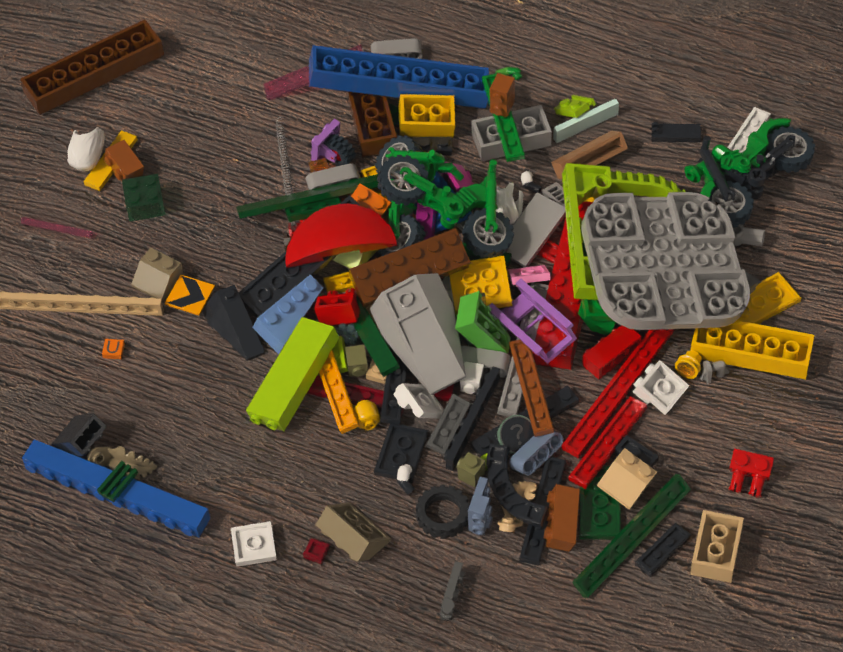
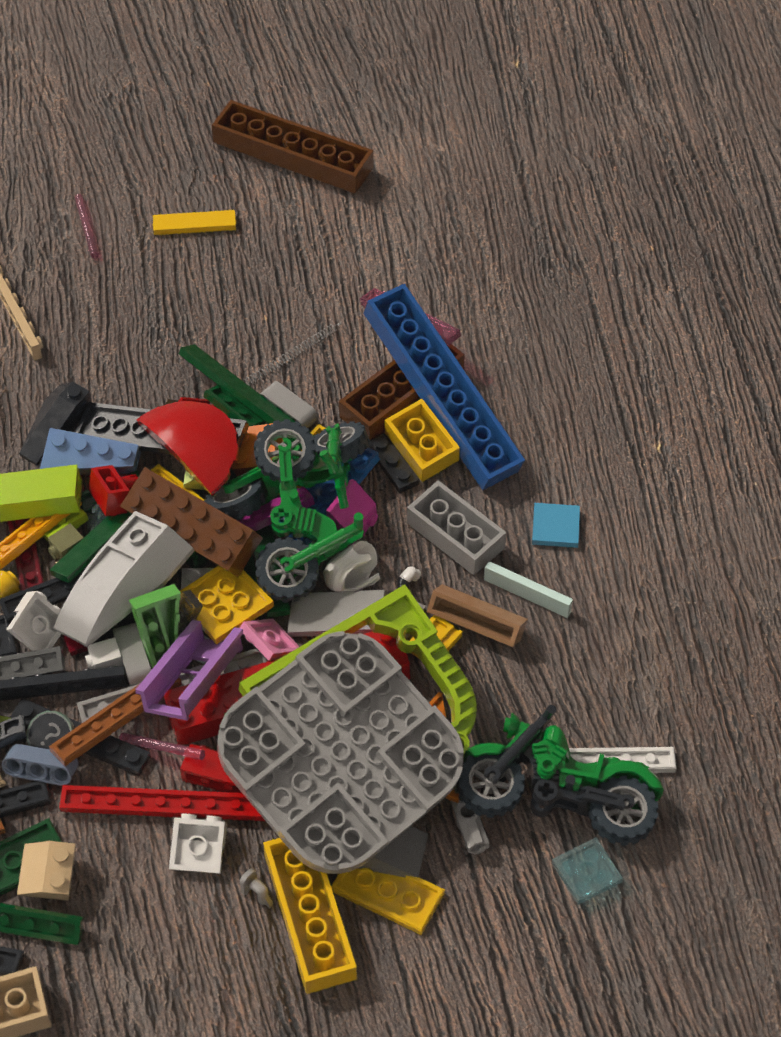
camera: 55 degrees right, 0 degrees up
(85, 149) = (184, 195): white hair -> none
(123, 161) = (191, 230): dark orange brick -> none
(143, 197) = (160, 268): clear green brick -> none
(156, 274) = (74, 329): dark tan slope -> none
(189, 295) = (64, 366): light orange piece -> none
(318, 165) = (298, 386): clear orange plate -> none
(332, 146) = (323, 379): plate -> none
(403, 47) = (498, 373): light grey beam -> none
(502, 95) = (470, 482): dark orange brick -> none
(505, 127) = (459, 505): green tile -> none
(516, 72) = (548, 485): green arm -> none
(543, 83) = (556, 525): none -> dark azure tile
(573, 371) = (162, 746): none -> clear pink bar
(575, 106) = (536, 567): lime plate -> none
(606, 442) = (94, 828): red tile -> none
(638, 450) = (94, 865): black plate -> none
(675, 132) = (578, 686): black hinge -> none
(689, 364) = (249, 857): yellow piece -> none
(752, 465) = (138, 990): red brick -> none
(813, 192) = (587, 870): none -> clear light blue plate

